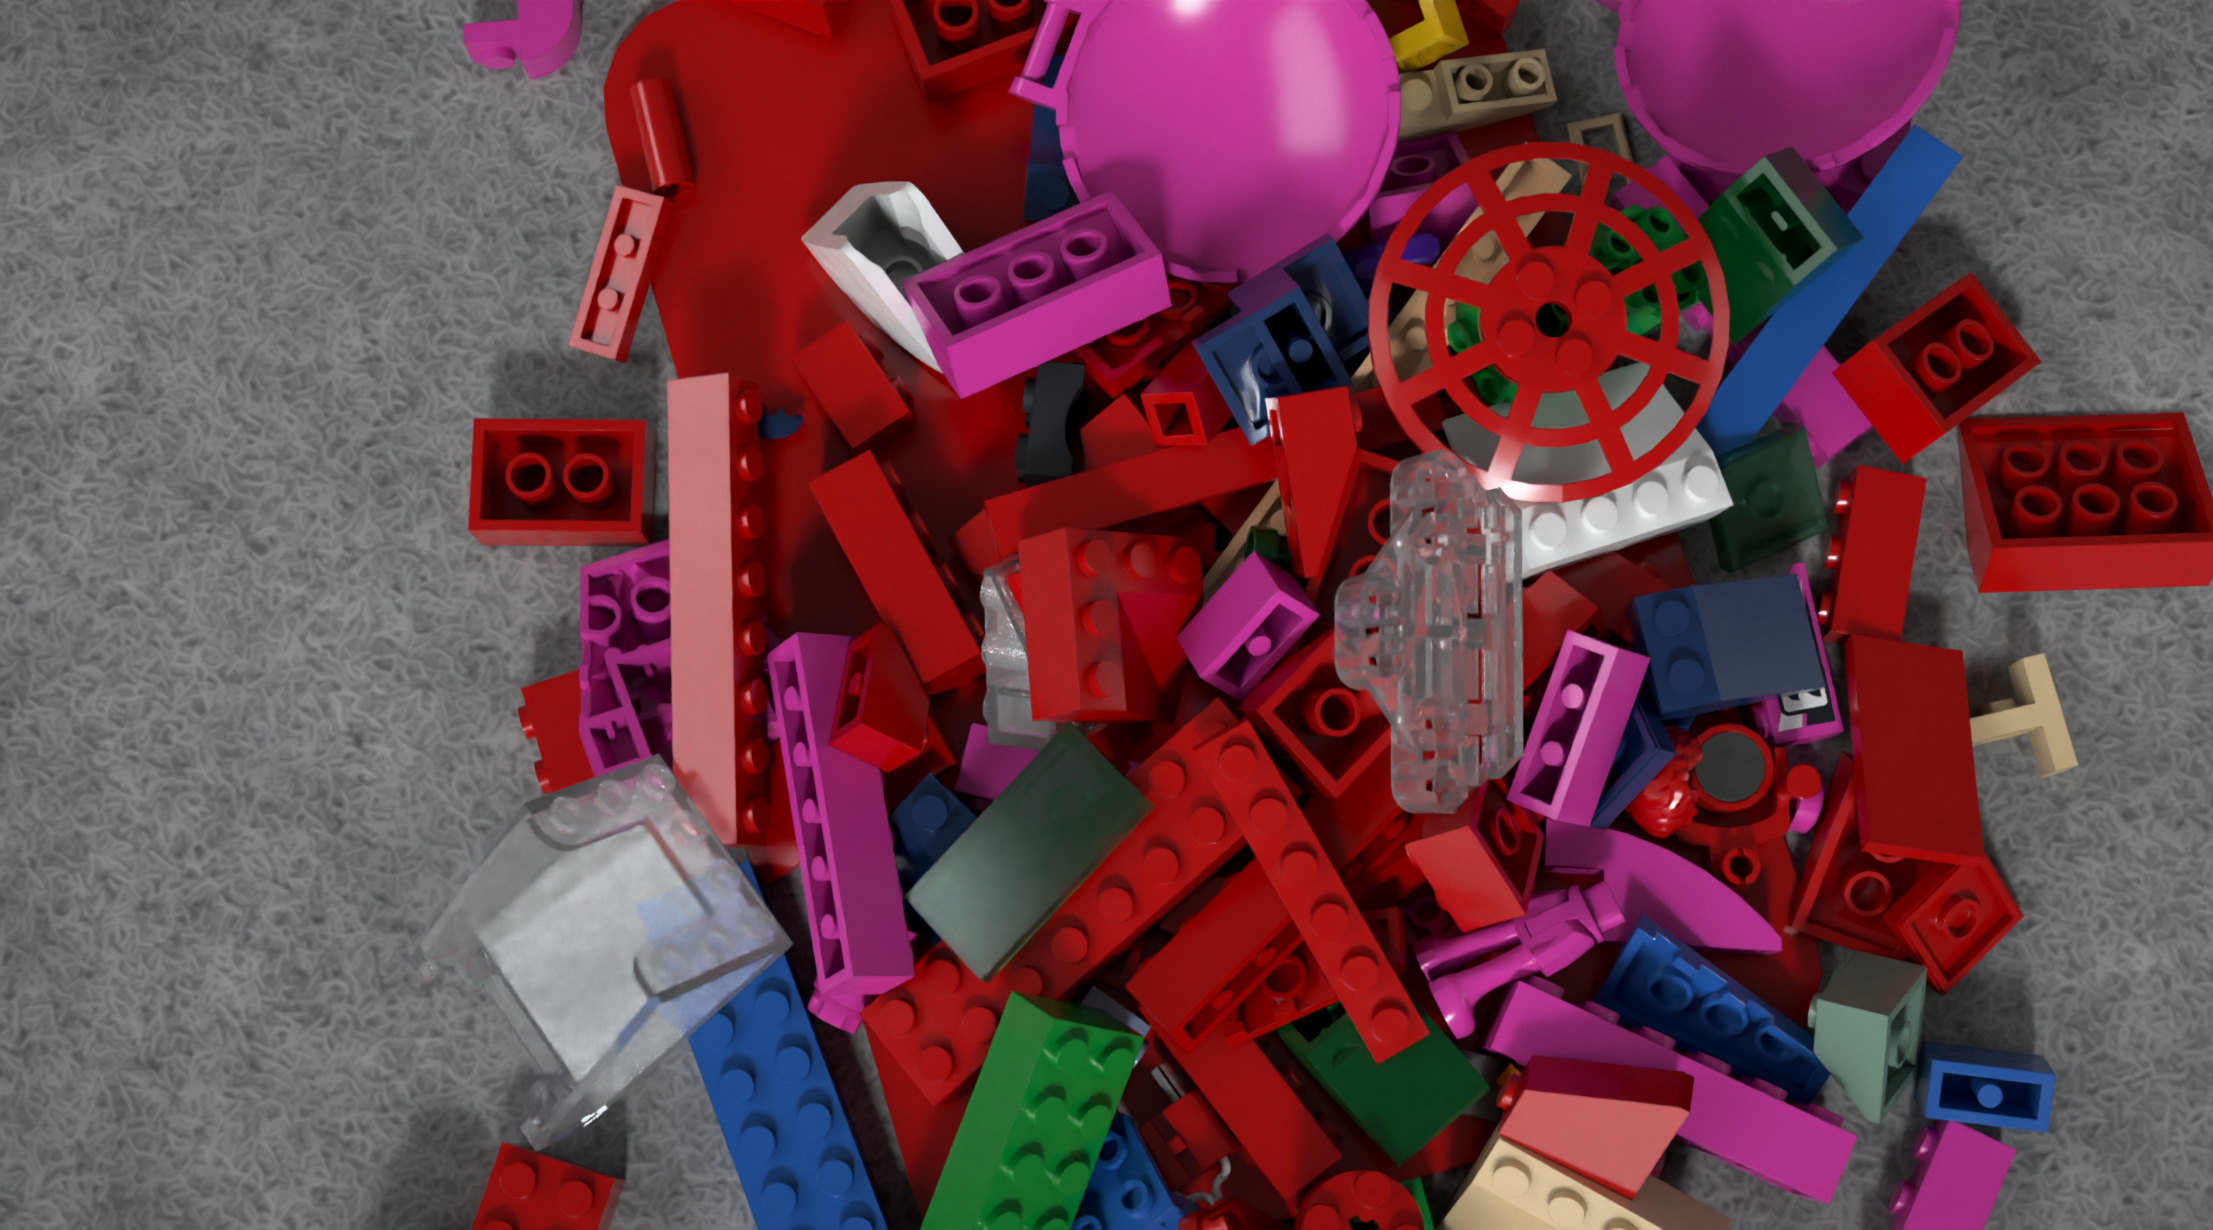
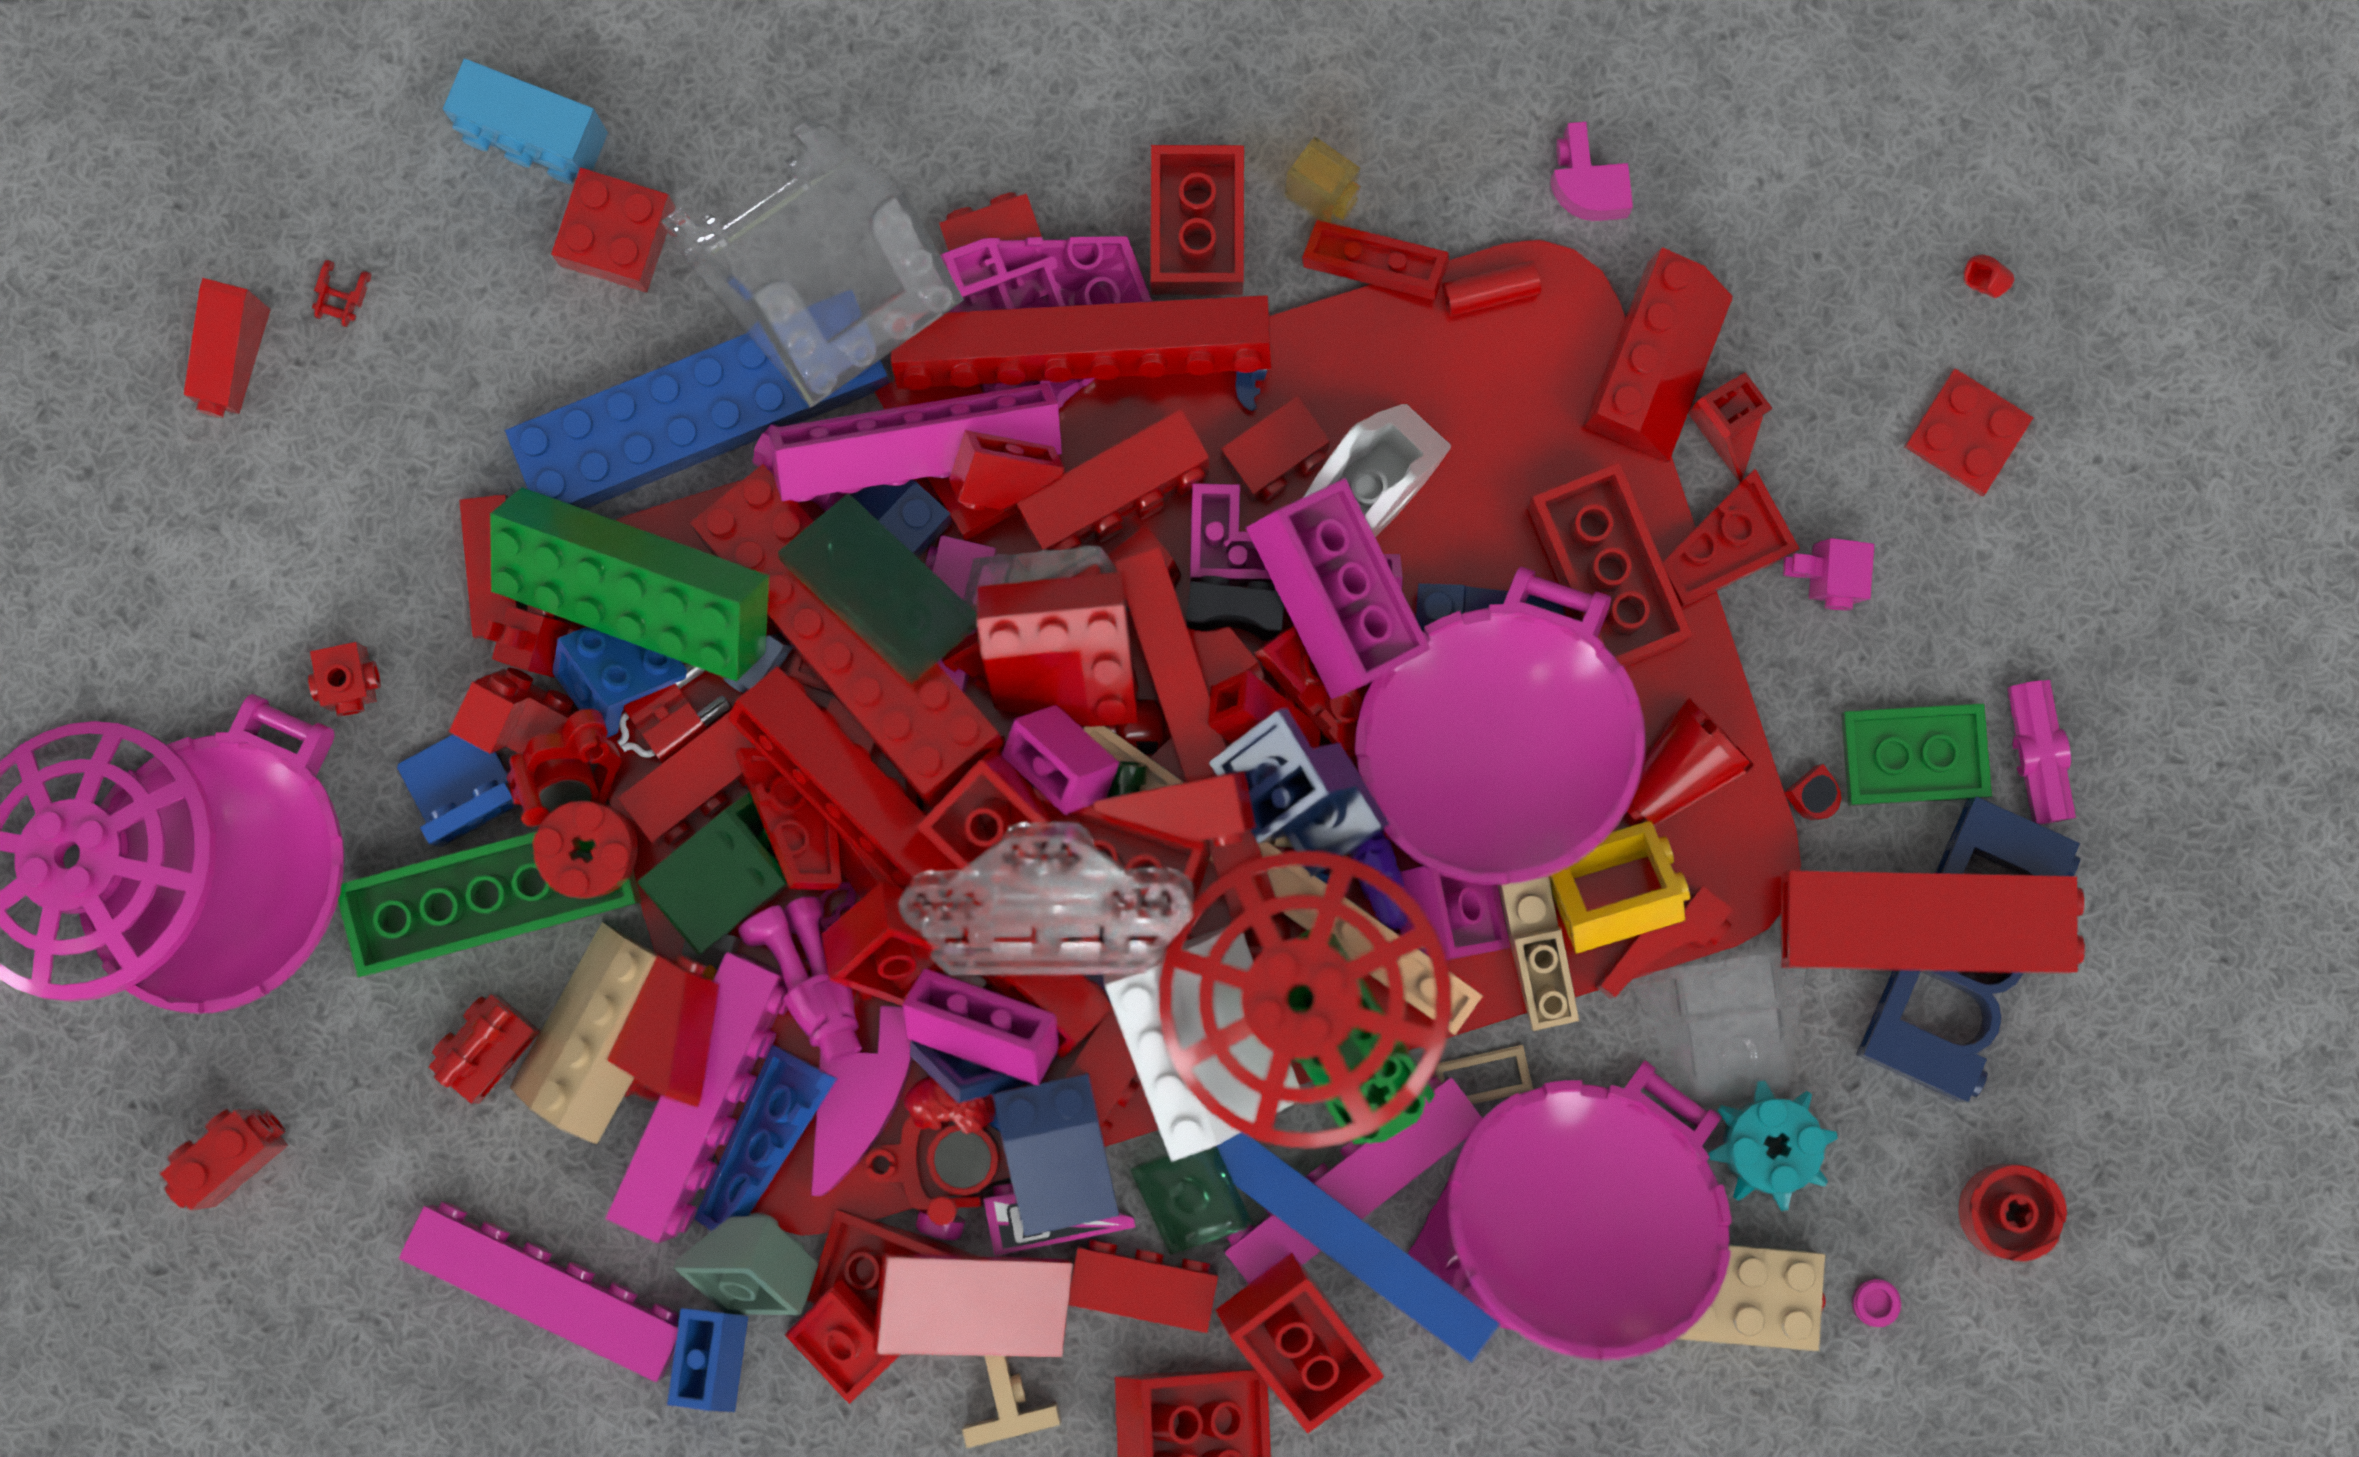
camera: 85 degrees right, 5 degrees up
(523, 327) = (1323, 182): none -> clear yellow brick
(968, 455) = (1216, 539): none -> dark pink brick
(1311, 889) = (845, 806): red plate -> none
(1773, 238) = (1394, 1195): dark green slope -> none

